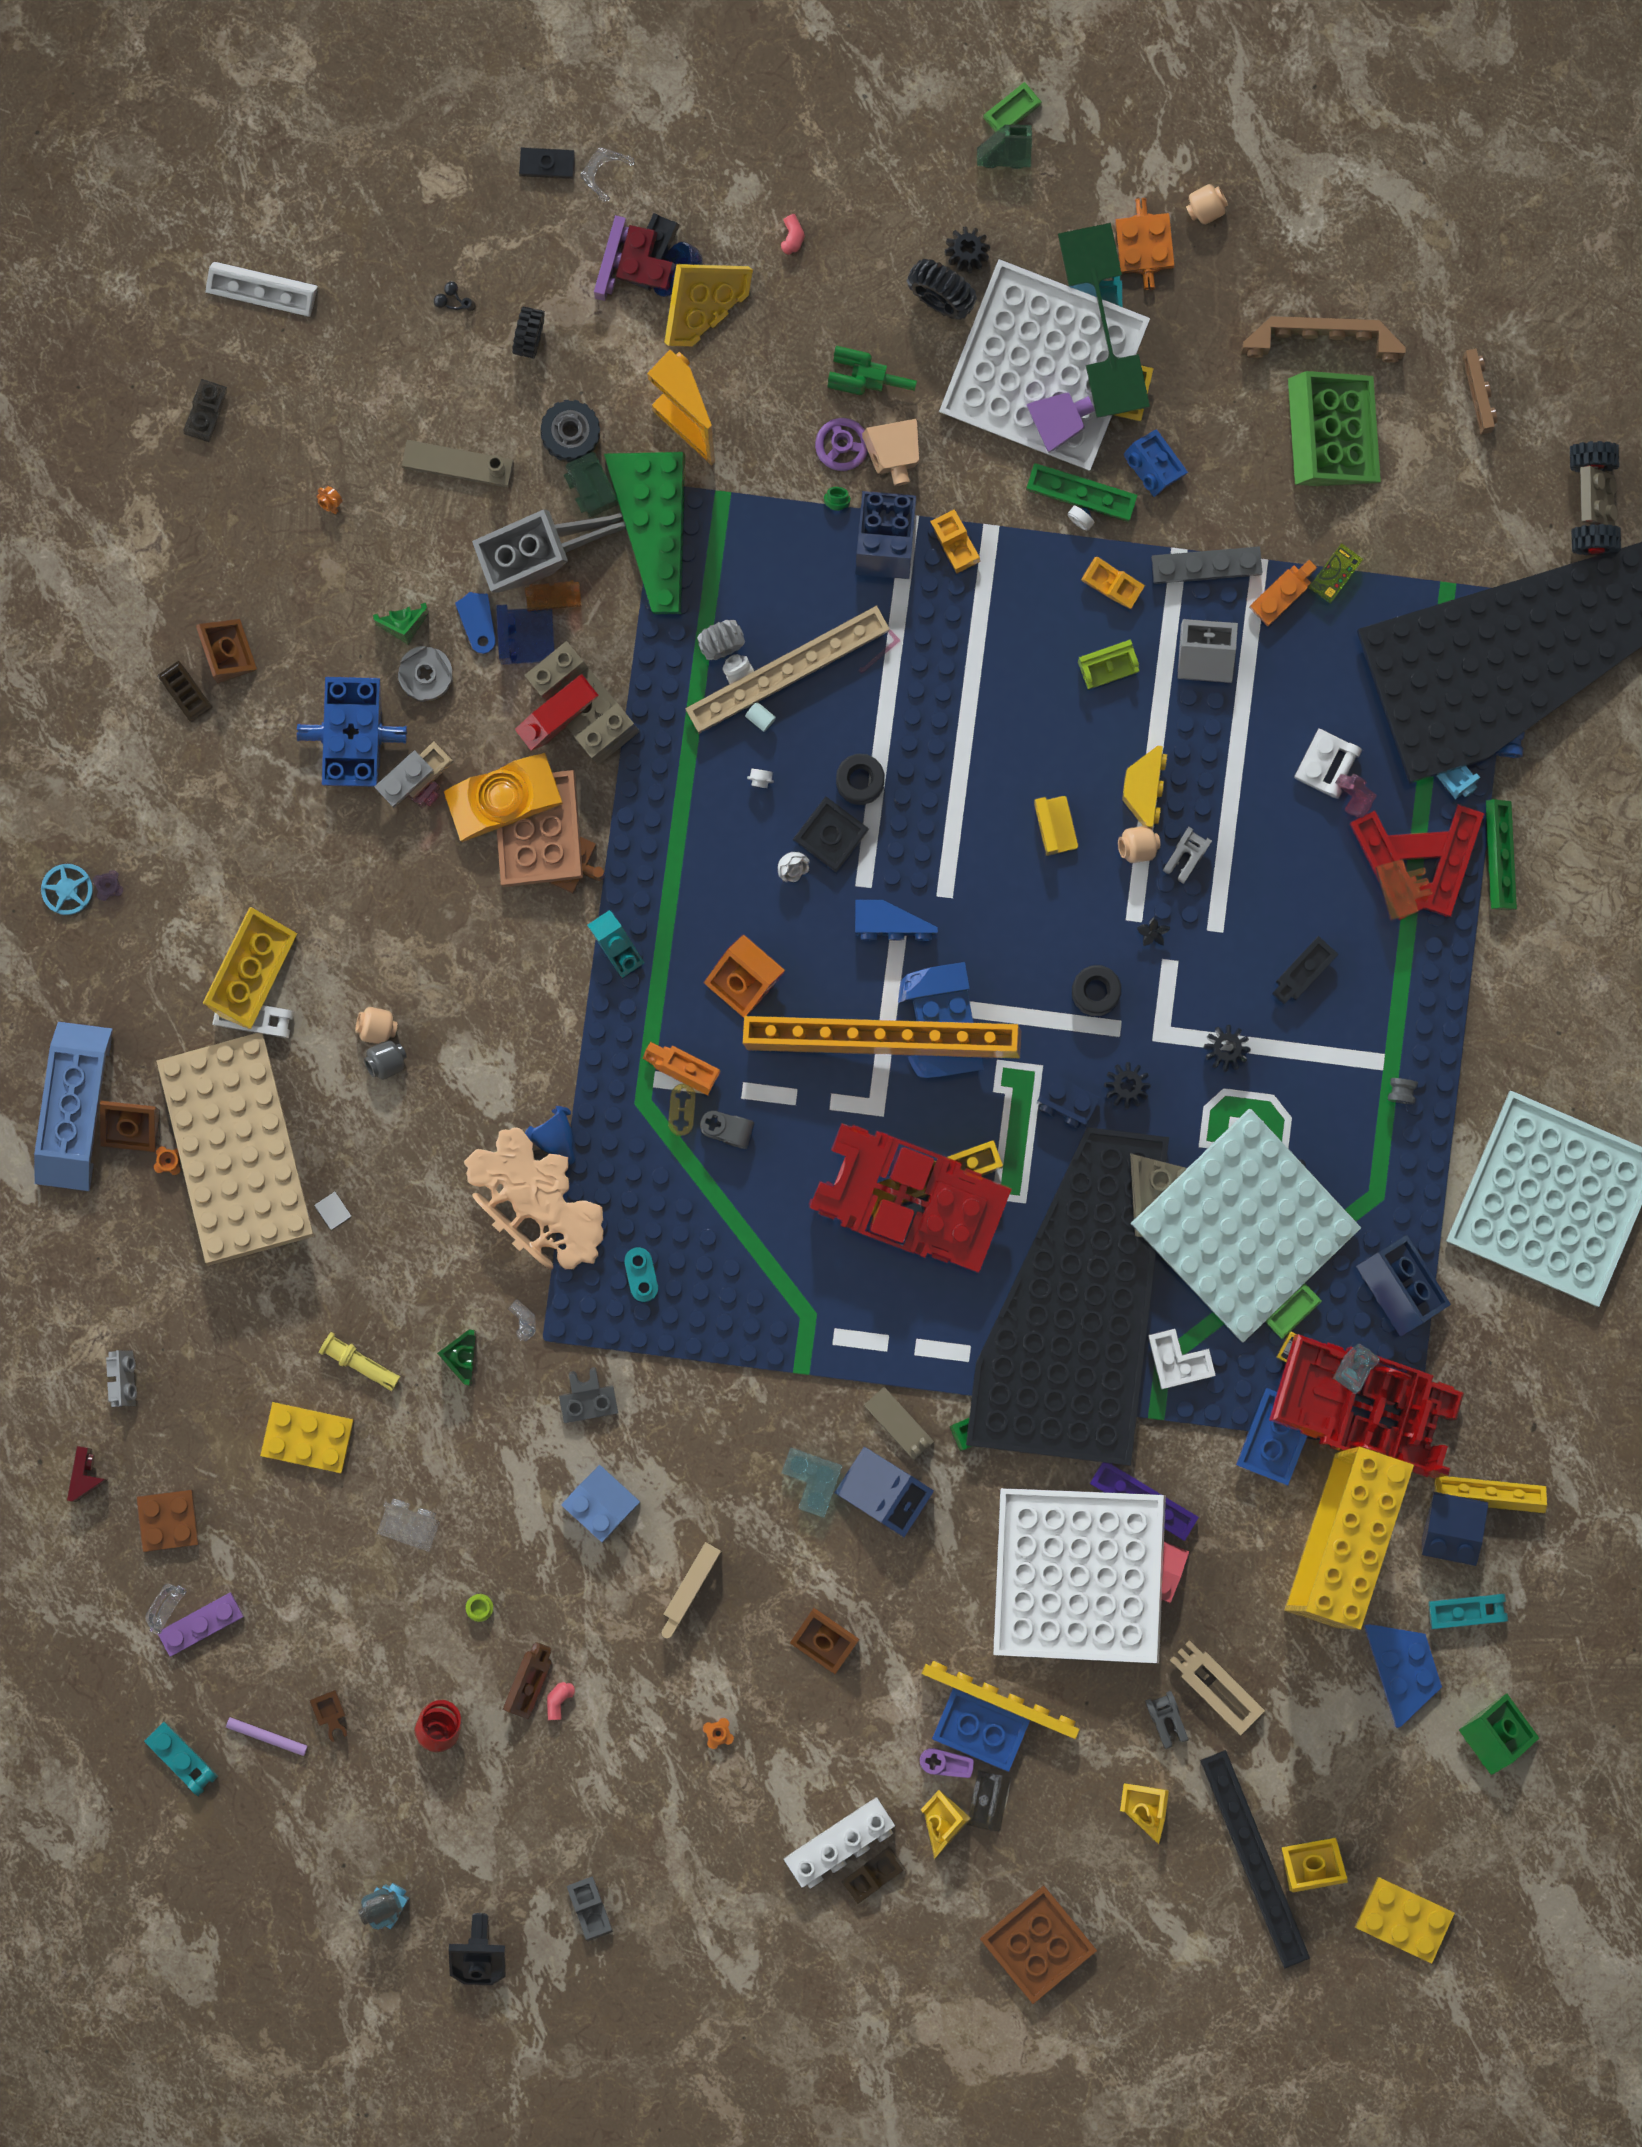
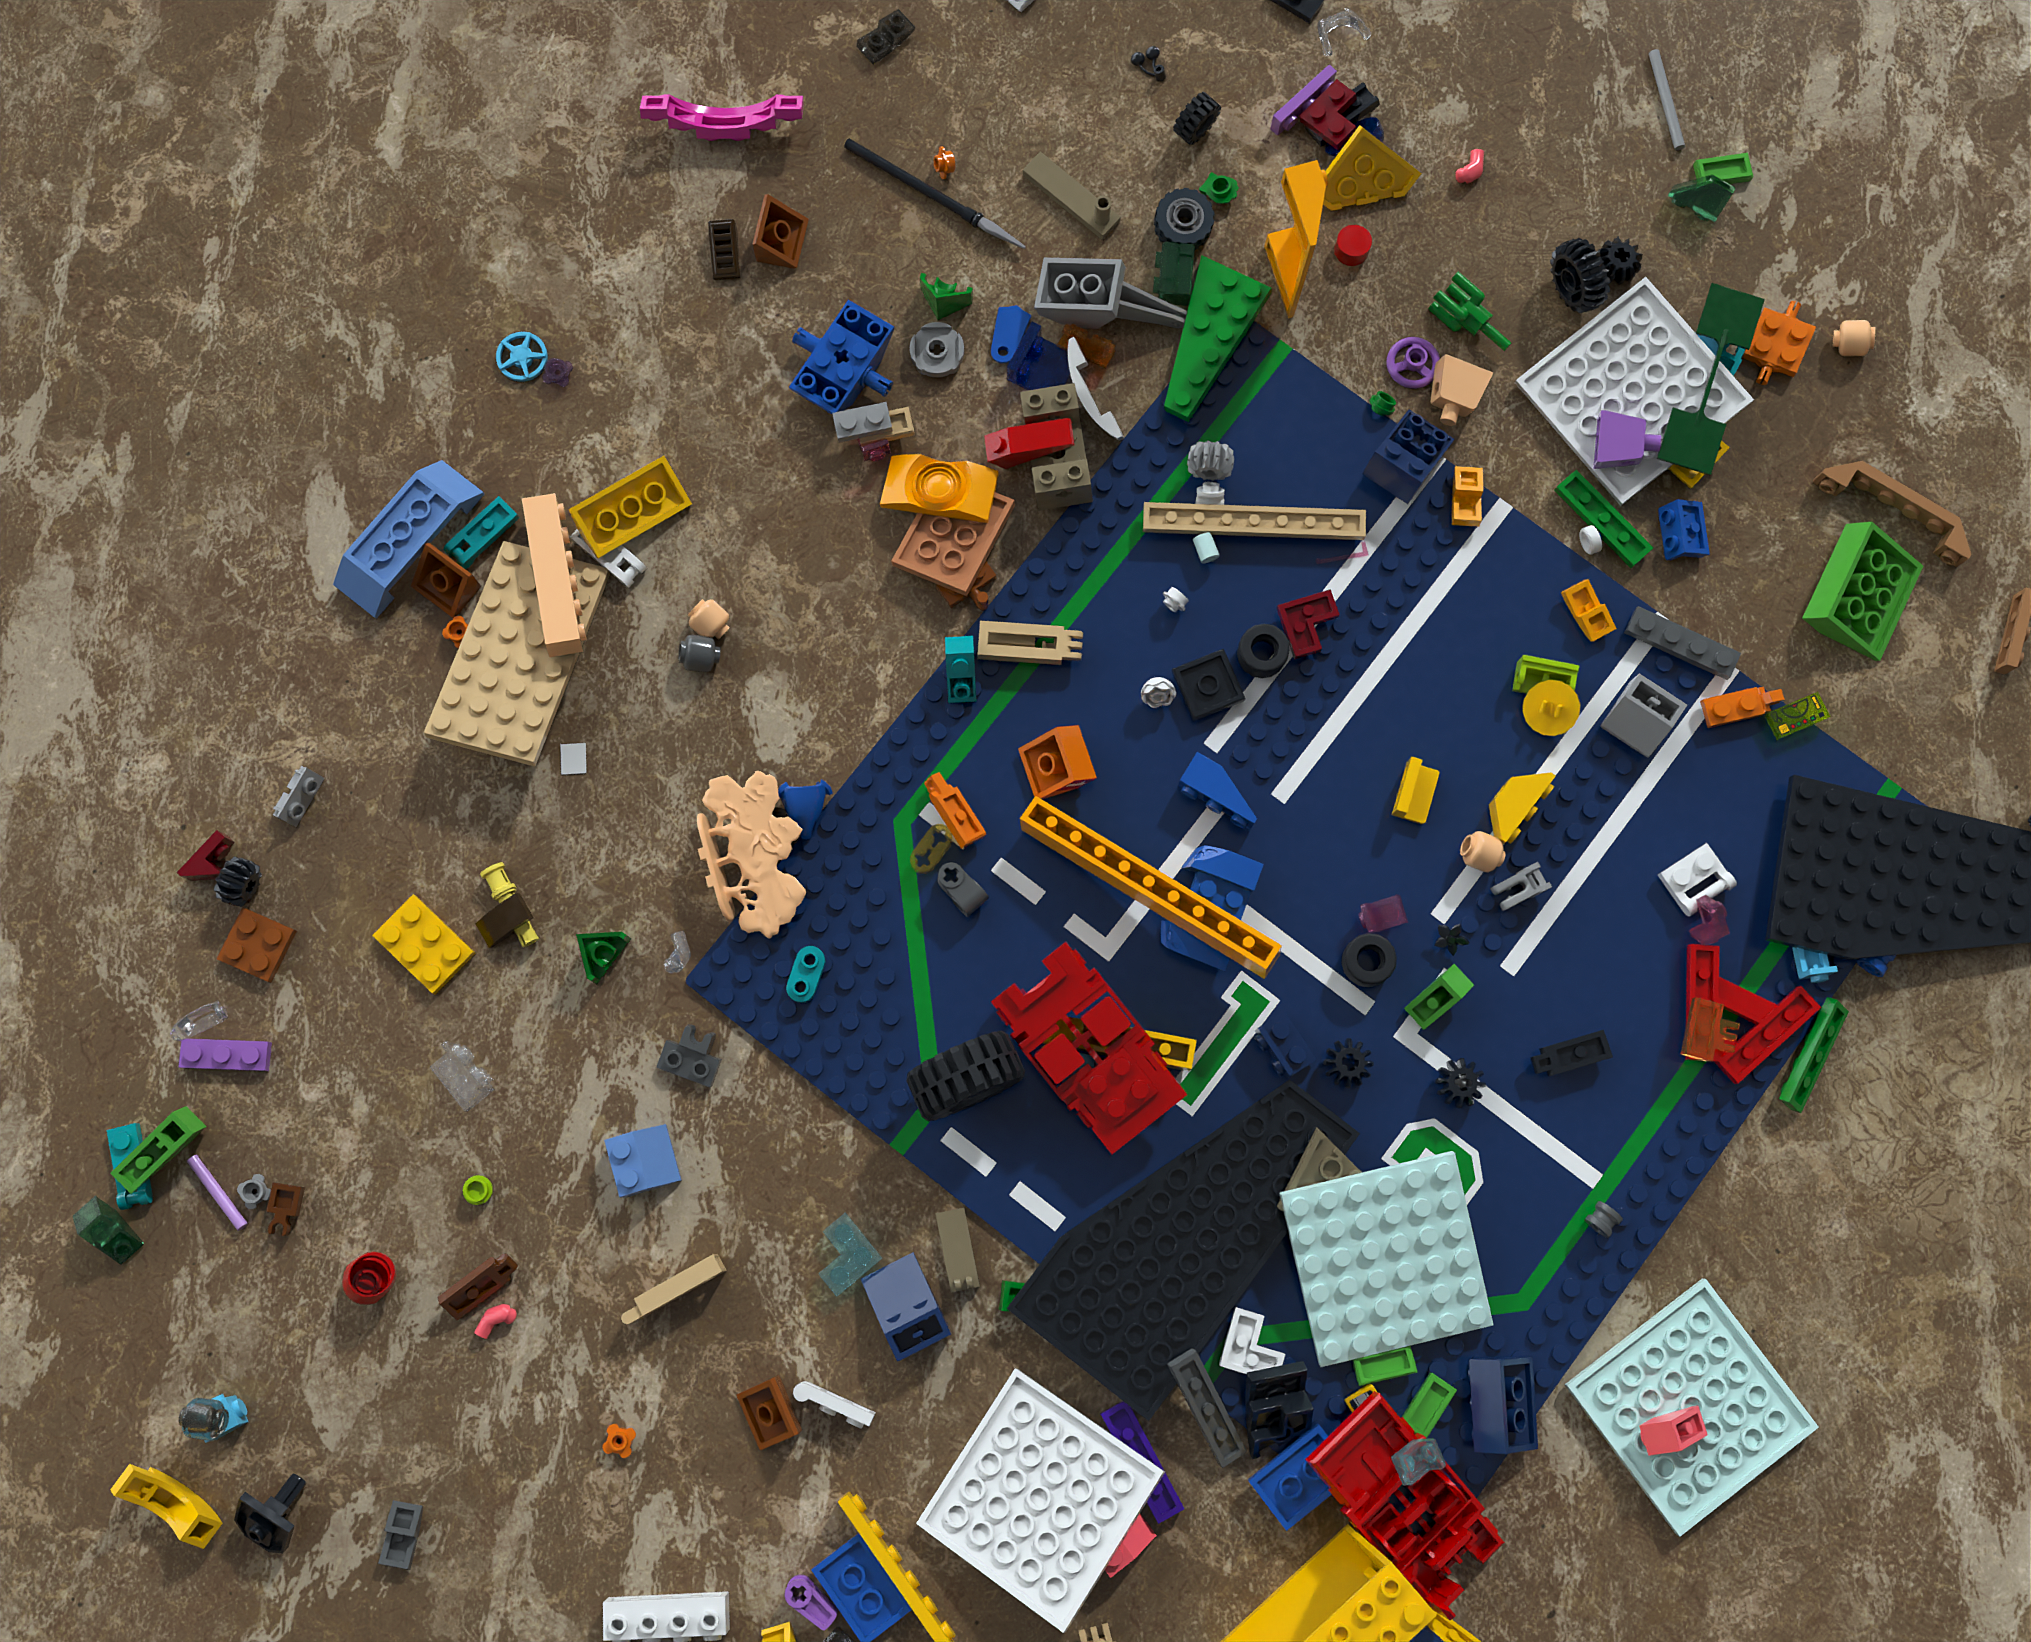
camera: 30 degrees right, 5 degrees down
(110, 574) = (721, 123): none -> dark pink piece
(122, 1477) = (237, 881): none -> black gear
(133, 1063) = (481, 532): none -> teal plate
(198, 1818) = (106, 1230): none -> clear green slope
(199, 1729) = (158, 1149): none -> bright green slope
(223, 1066) = (552, 575): none -> light nougat brick
(296, 1709) = (245, 1190): none -> light grey plate
(363, 1378) = (503, 920): none -> dark brown slope
(377, 534) = (968, 214): none -> black piece
(392, 1992) = (172, 1501): none -> yellow arch
(584, 382) = (1220, 188): none -> green animal
(612, 653) = (1076, 362): none -> white slope
(649, 891) = (1017, 643): none -> tan hinge
(729, 367) = (1353, 245): none -> red piece
(824, 1279) = (965, 1075): none -> black tyre
(871, 1603) = (832, 1403): none -> white plate
(874, 732) = (1299, 620): none -> dark red plate
(927, 70) = (1666, 99): none -> light grey bar
(1086, 945) = (1383, 914): none -> clear pink bracket
(1127, 687) = (1551, 707): none -> yellow piece
(1170, 986) = (1439, 996): none -> bright green slope
(1171, 1427) = (1207, 1407): none -> dark grey plate
(1225, 1393) = (1276, 1406): none -> black slope
(1345, 1320) = (1428, 1404): none -> bright green tile
(1547, 1226) = (1673, 1431): none -> coral slope

